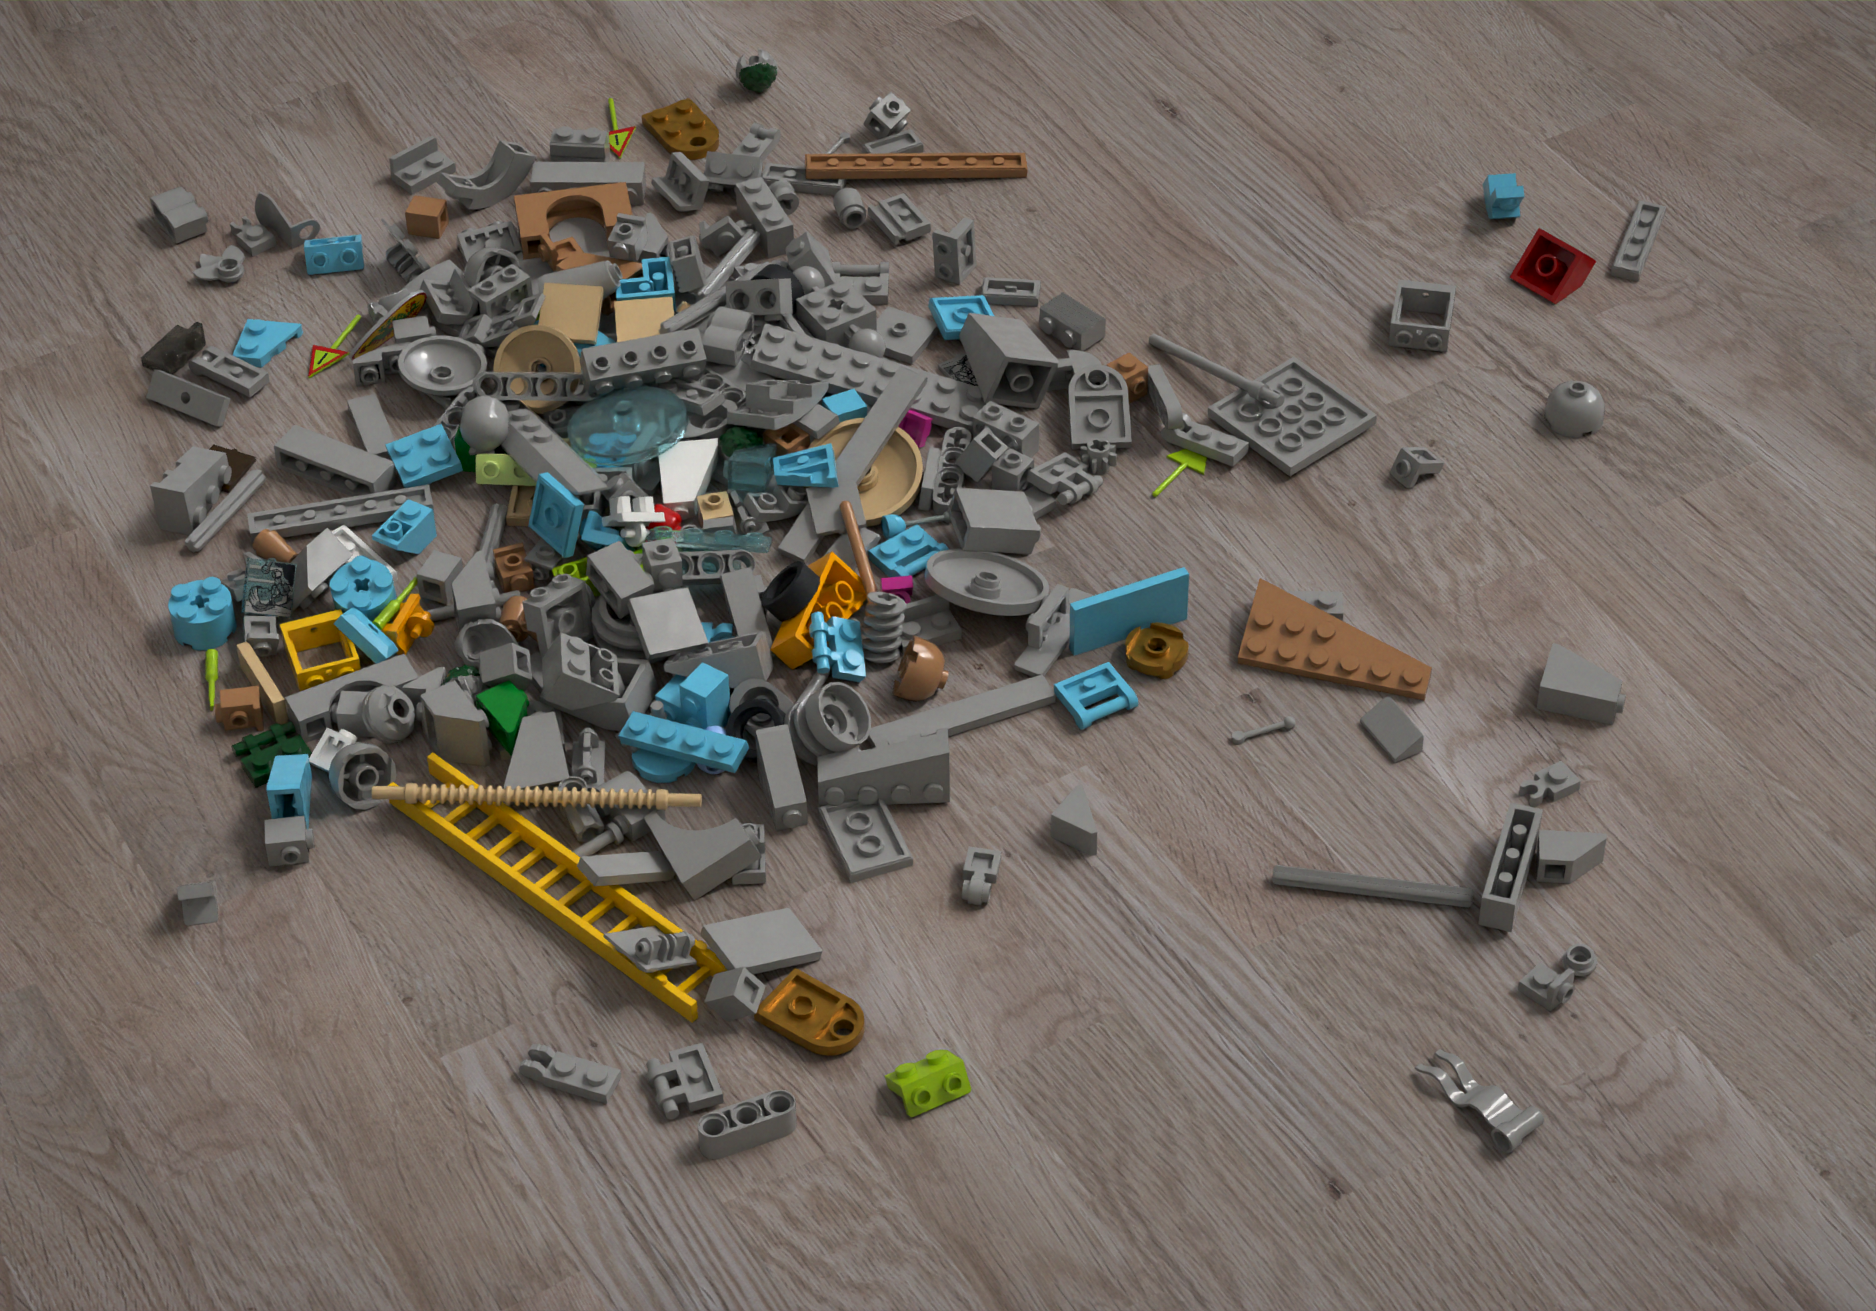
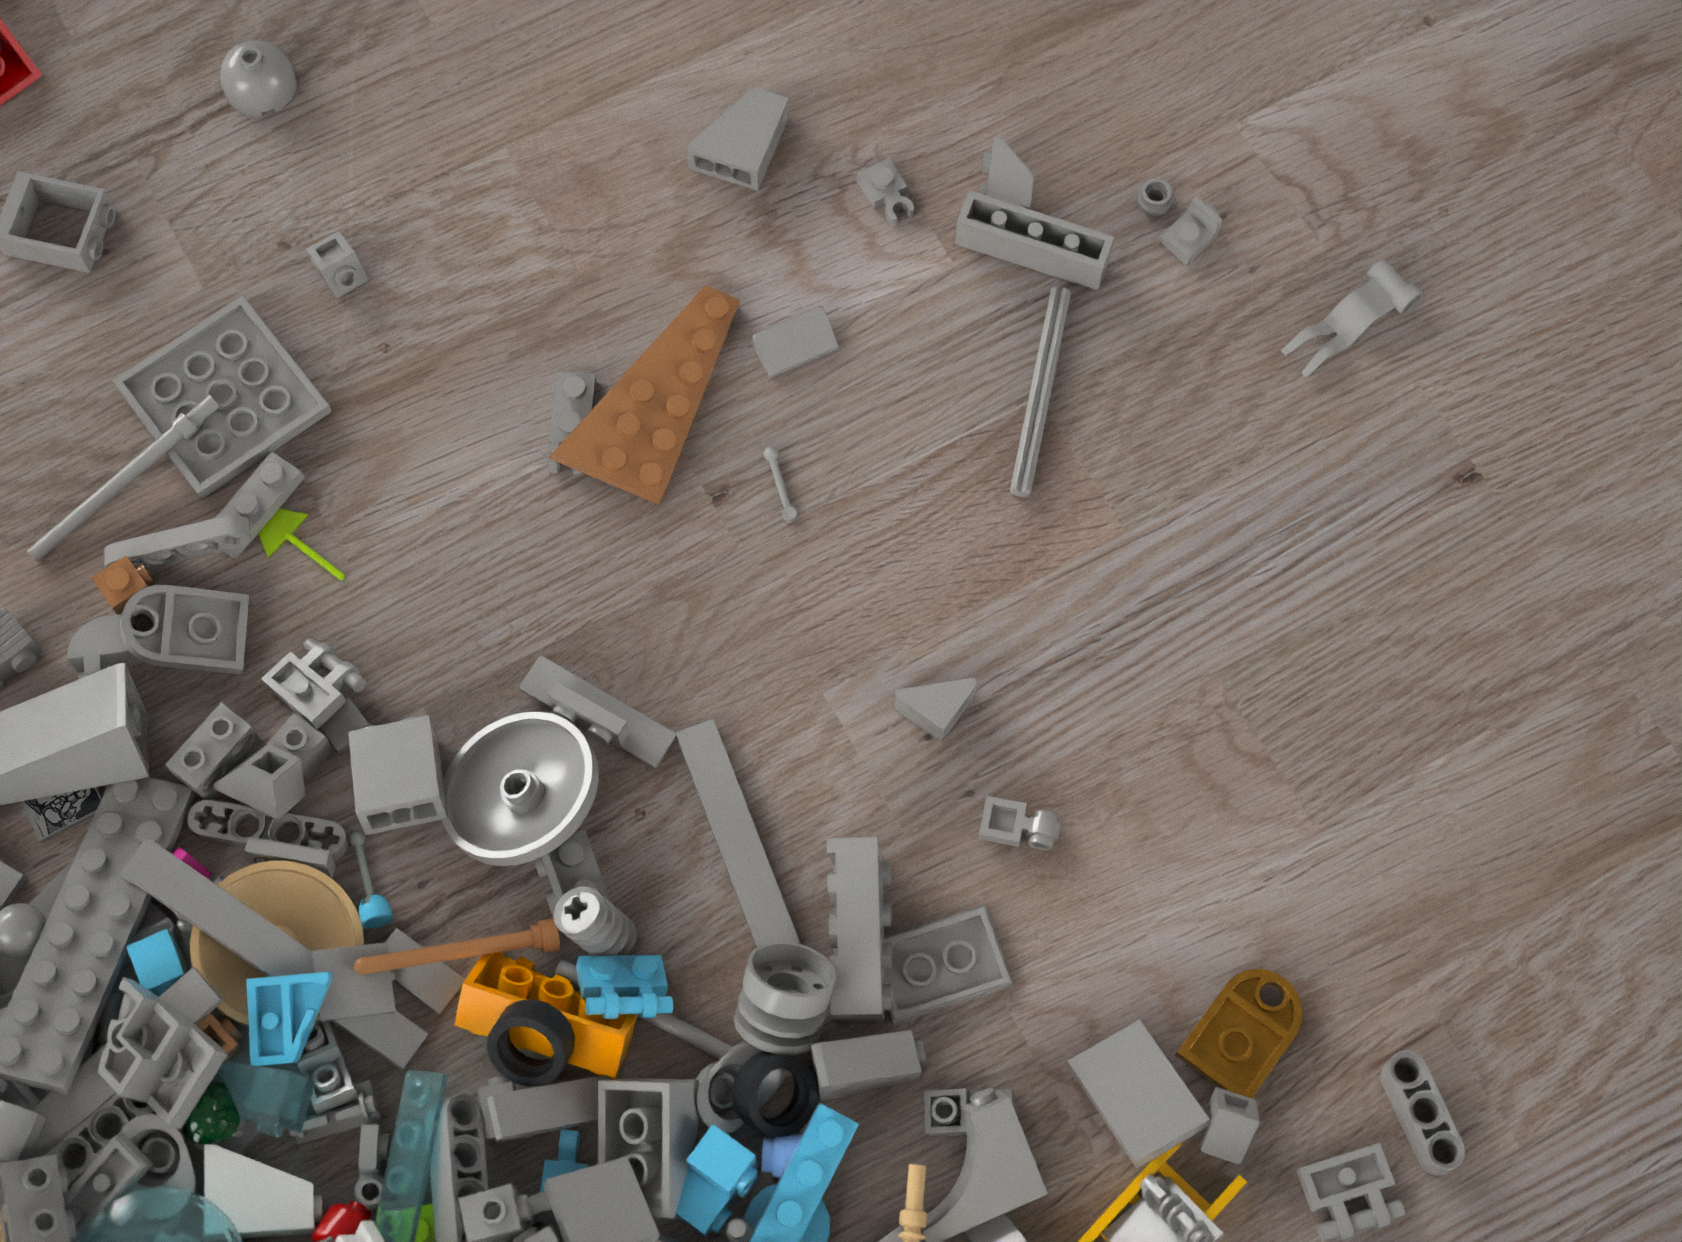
camera: 90 degrees left, 25 degrees up
(713, 506) = (328, 1155): tan brick -> none
(899, 586) = (502, 908): dark pink tile -> none
(905, 553) = (417, 900): medium azure plate -> none
(920, 671) = (671, 884): medium nougat cylinder -> none
(929, 1081) = (1342, 898): lime bracket -> none
(1092, 687) = (704, 677): medium azure plate -> none
(1098, 456) = (266, 627): light grey gear -> none
(1117, 612) = (591, 614): medium azure tile -> none
(1156, 663) = (648, 613): pearl gold plate -> none

